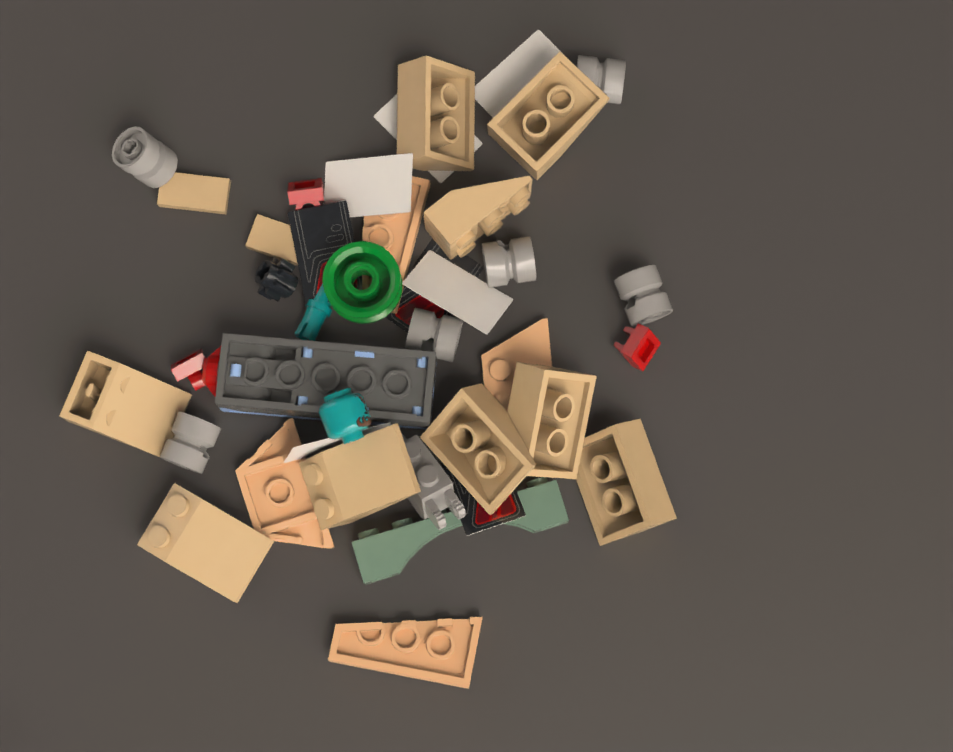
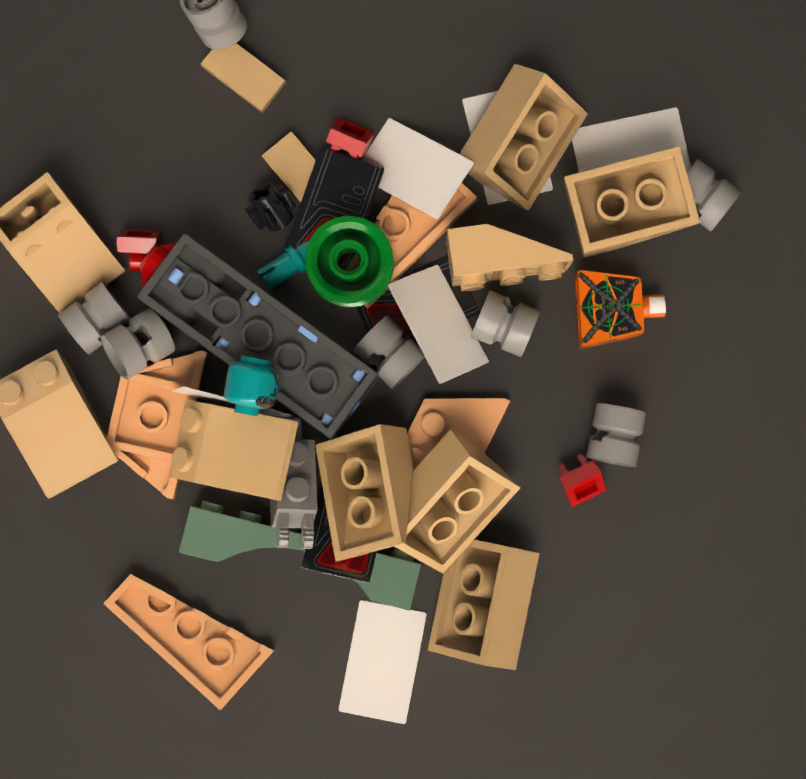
camera: 35 degrees right, 5 degrees up
(237, 437) = (124, 347): none -> light grey wheel
(570, 576) = (382, 662): none -> white sticker
(581, 203) = (612, 307): none -> torso

